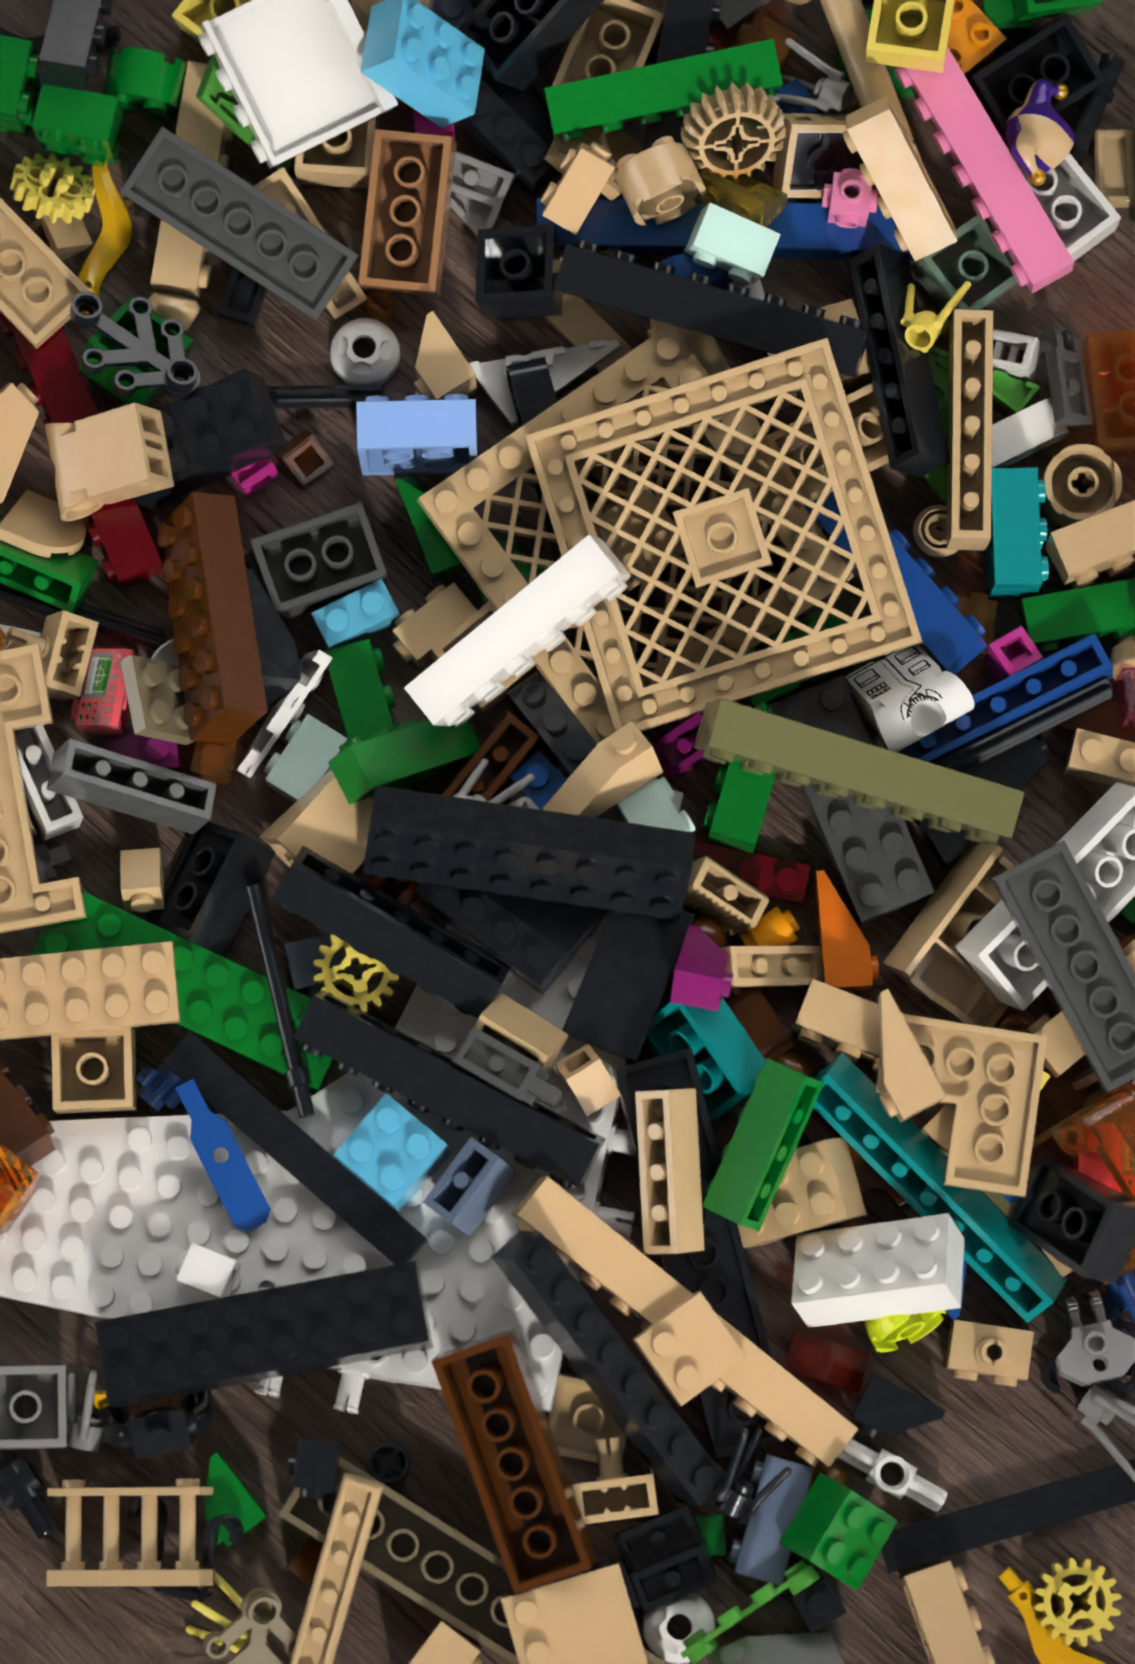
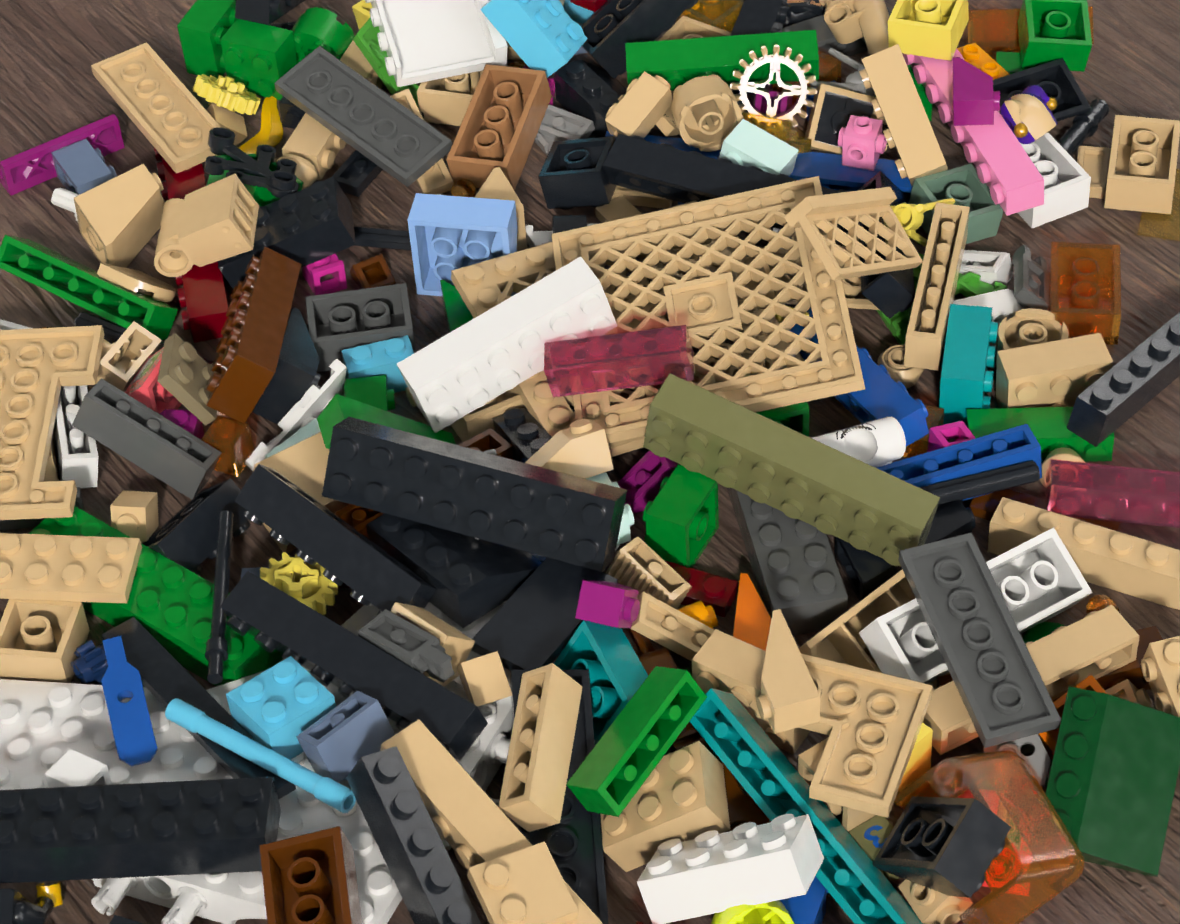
camera: 15 degrees right, 35 degrees down
(308, 1181) = (321, 787): none -> medium azure piece
(647, 641) = (618, 360): none -> clear pink brick
(865, 402) = (847, 210): none -> tan fence
(977, 141) = (973, 95): none -> magenta slope

